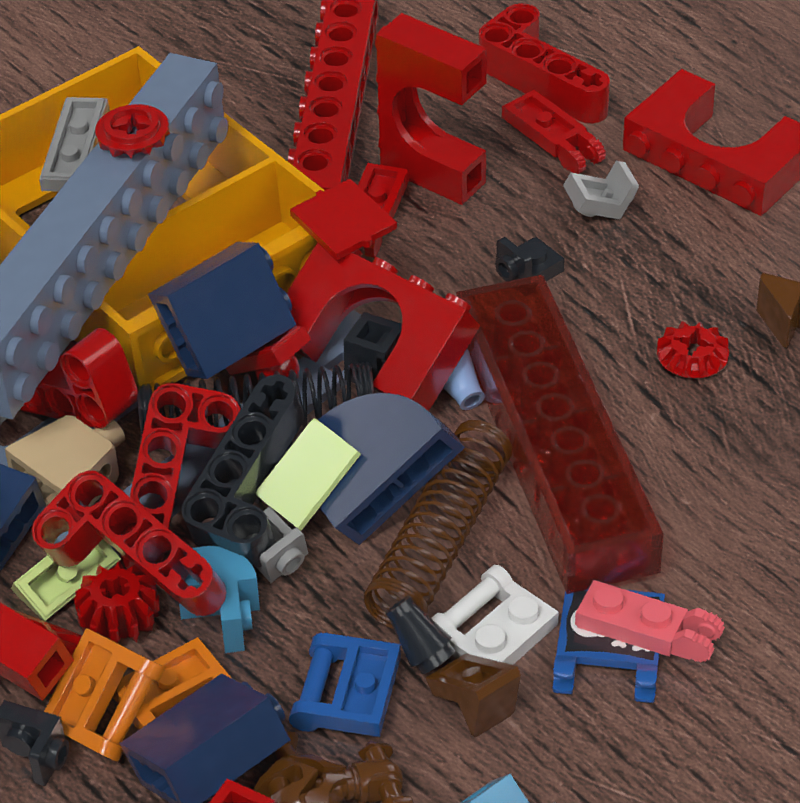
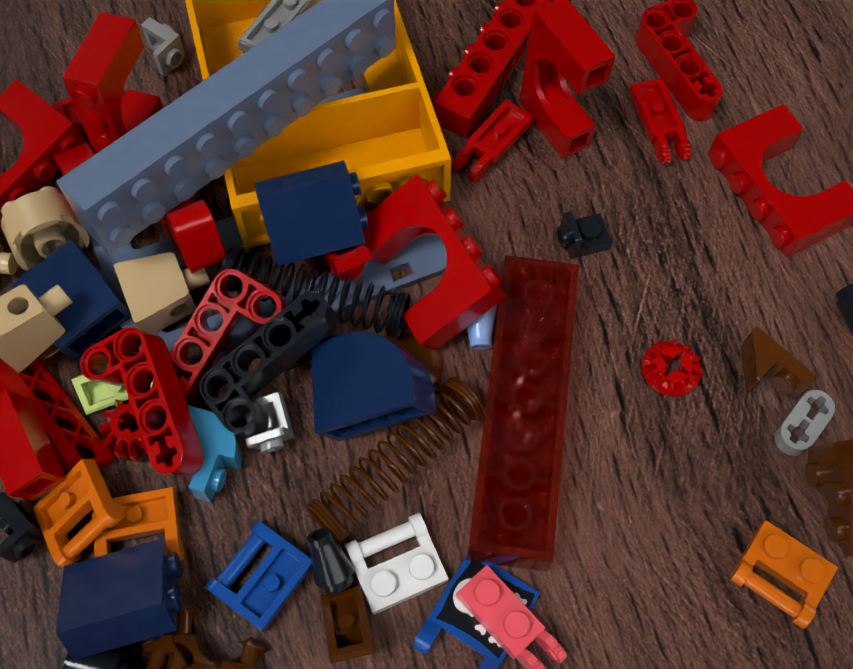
camera: 20 degrees right, 20 degrees up
(115, 128) = (285, 29): red gear -> none
(307, 473) = (313, 380): yellowish green slope -> none
(343, 219) = (439, 165): red piece -> none
(371, 341) = (423, 280): black brick -> none
(603, 196) = (669, 194): light grey bracket -> none

